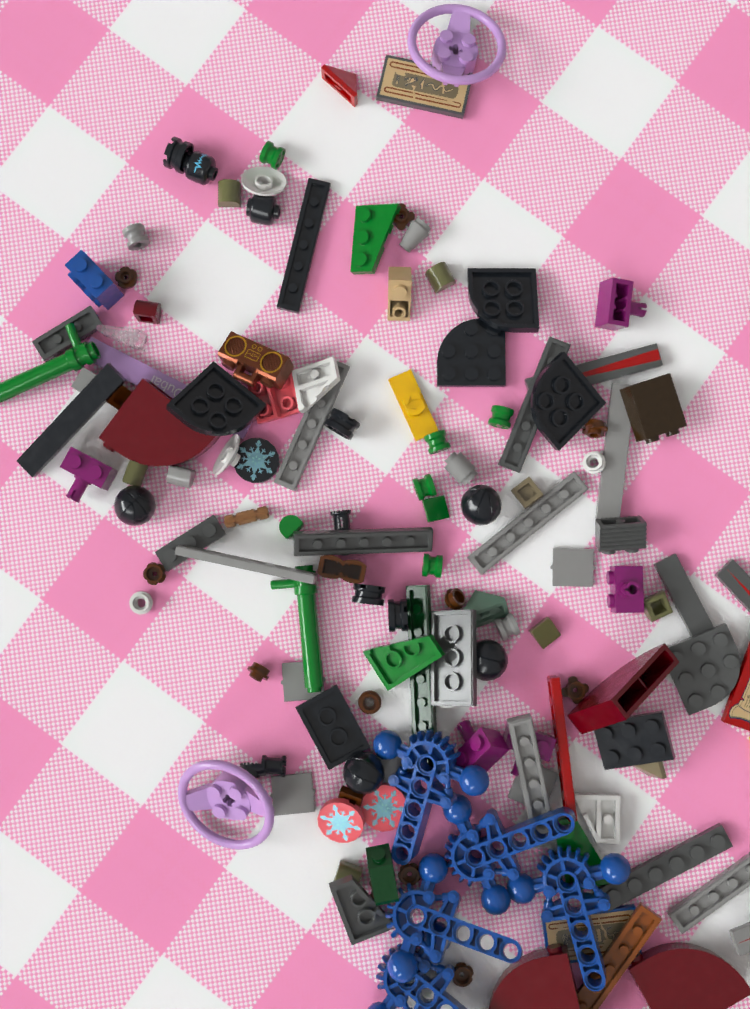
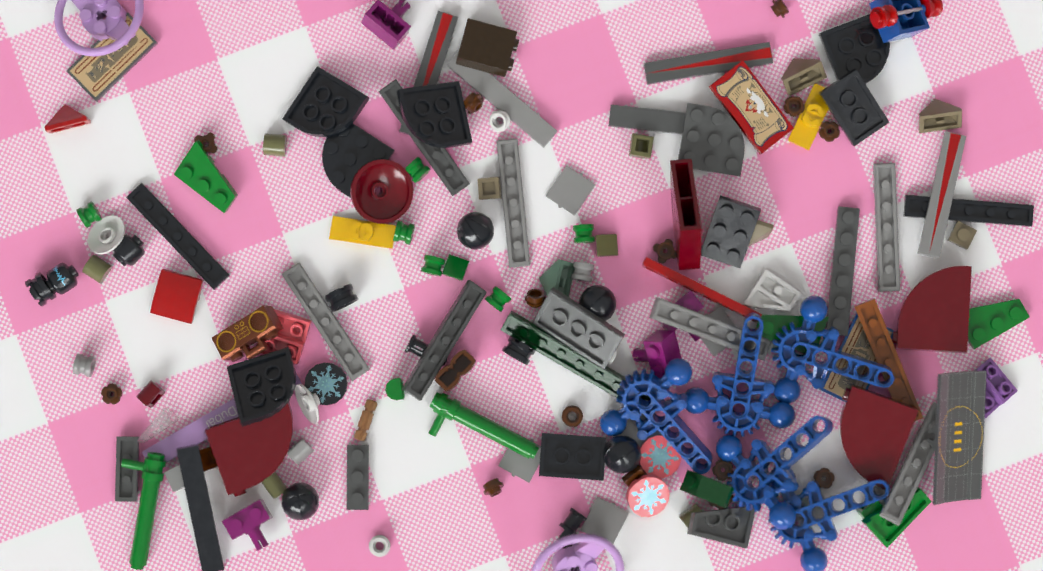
camera: 55 degrees left, 0 degrees up
(93, 280) = (105, 418): blue brick -> none
(148, 573) = (357, 520): reddish brown plate -> none
(246, 564) = (403, 441): light grey tile -> none
(249, 278) = (176, 296): none -> red slope
(314, 382) = (294, 297): white wing -> none
(368, 594) = (488, 363): black wheel -> none
(399, 293) = (267, 185): tan slope -> none
(403, 659) = (555, 368): green wing -> none
(415, 234) = (227, 142): light grey cone -> none
(460, 468) = (436, 227): light grey brick -> none
(467, 411) = (393, 198): none -> dark red dish
(542, 605) = (583, 233): none -> green wheel
(620, 534) = (568, 137): dark grey brick -> none
(625, 589) = (612, 161): magenta brick -> none

